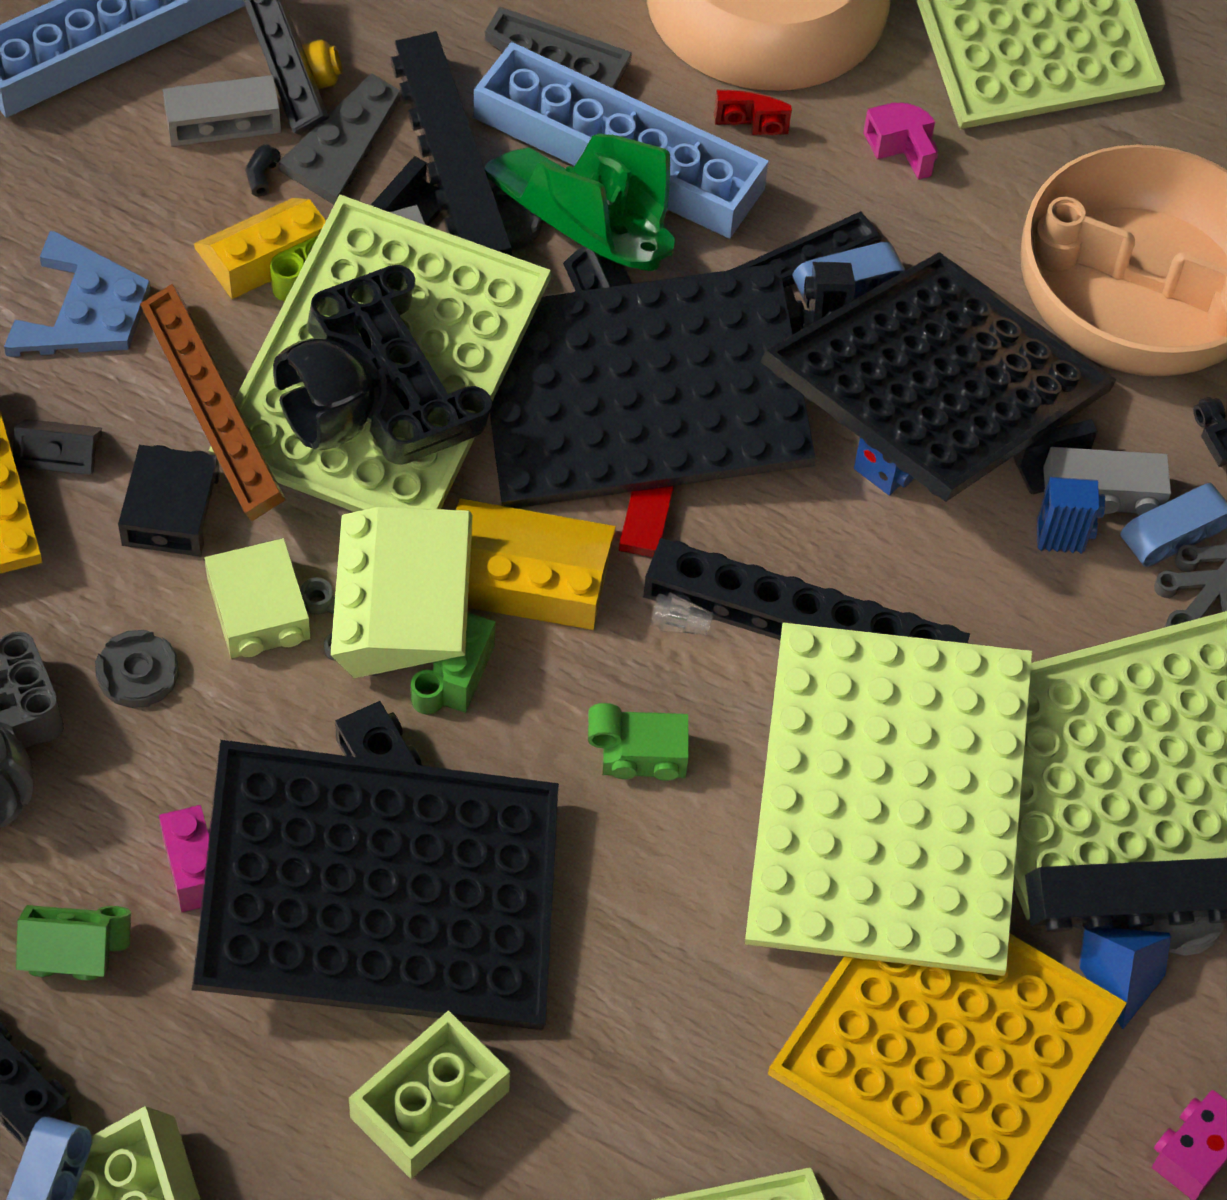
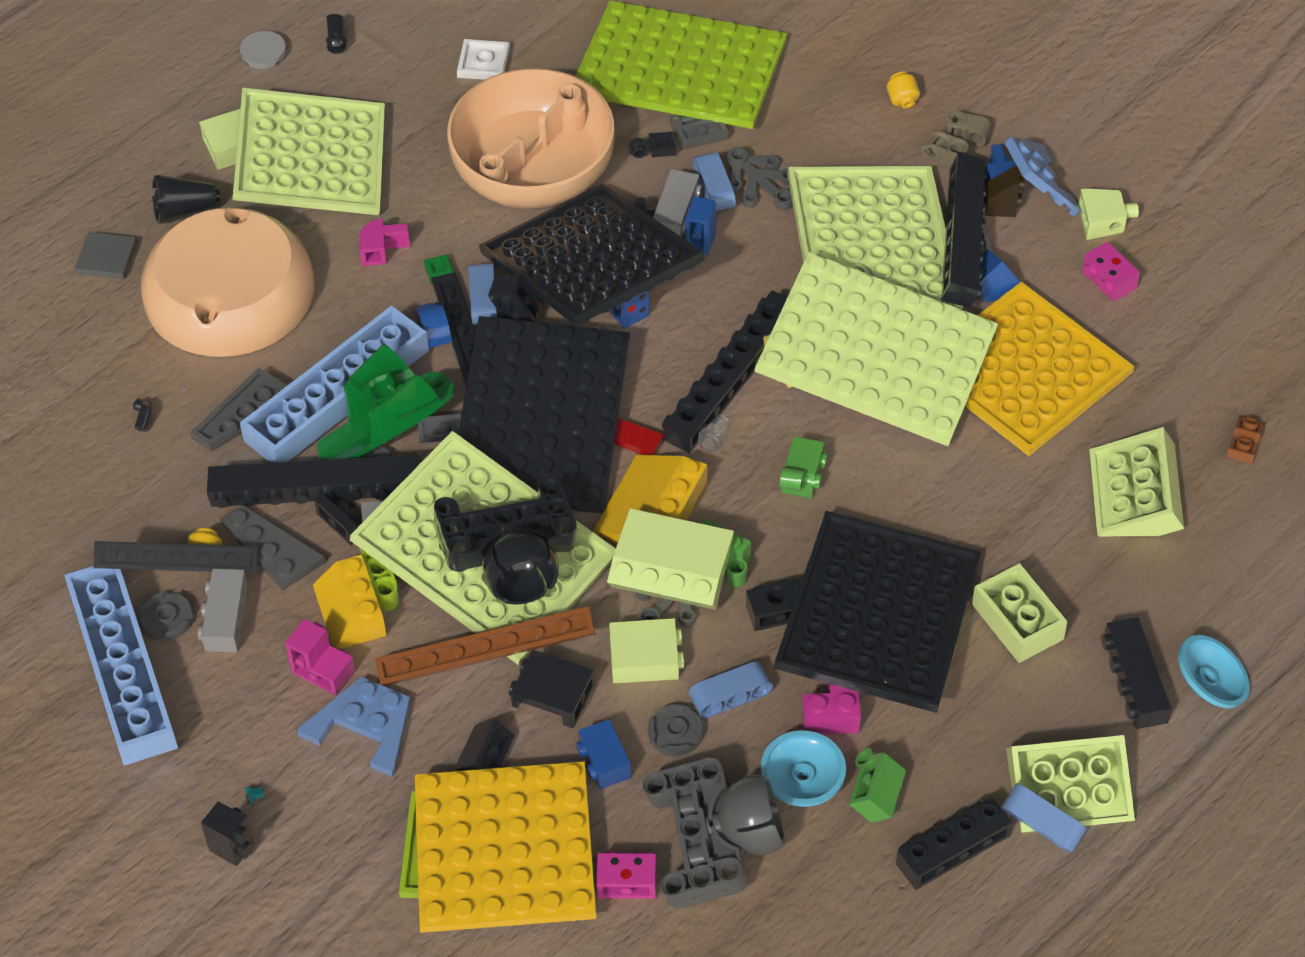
camera: 70 degrees left, 5 degrees down
(70, 583) = (604, 754): none -> blue brick
(73, 812) = (806, 756): none -> medium azure dish
(159, 222) = (316, 660): none -> dark pink brick
(206, 712) = (730, 689): none -> medium blue beam
(207, 56) = (166, 616): none -> dark grey tile
(255, 169) = (279, 599): black arm -> none
(763, 112) = (332, 313): red slope -> none
(770, 227) = (434, 321): none -> blue brick
(887, 217) = (437, 266): none -> green tile

